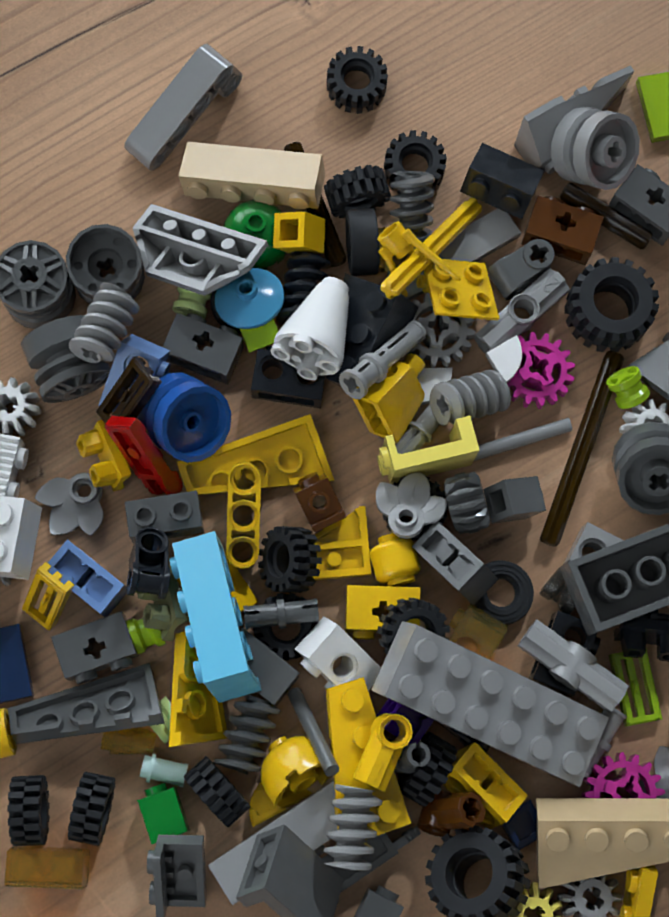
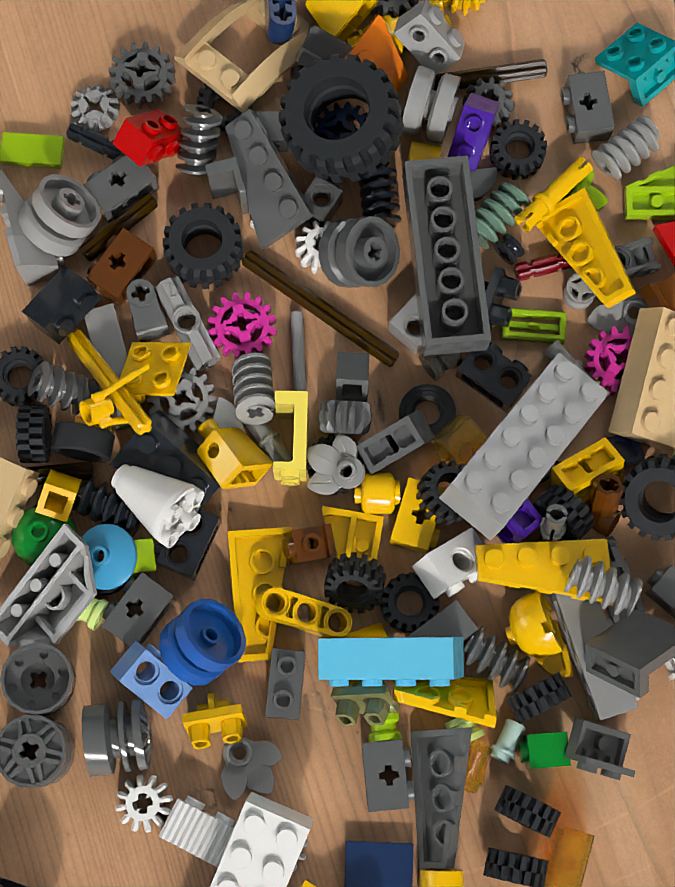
camera: 70 degrees left, 0 degrees up
(54, 585) = (323, 797): yellow tile -> none
(90, 579) = (324, 768): medium blue brick -> none
(104, 324) = (100, 690): light grey piece -> none
(136, 398) = (182, 681): dark brown tile -> none
(142, 455) = (227, 688): red hinge -> none
(149, 564) = (335, 706): black piece -> none
(281, 613) = (401, 602): dark grey pin -> none
(313, 732) = (509, 601): dark grey bar -> none
(374, 366) = (207, 460): light grey pin -> none
(381, 755) = (547, 545): yellow piece -> none
(506, 358) = (227, 347): white tile -> none
(573, 666) = (509, 368): light grey piece -> none
(628, 387) = (281, 253): lime wheel -> none

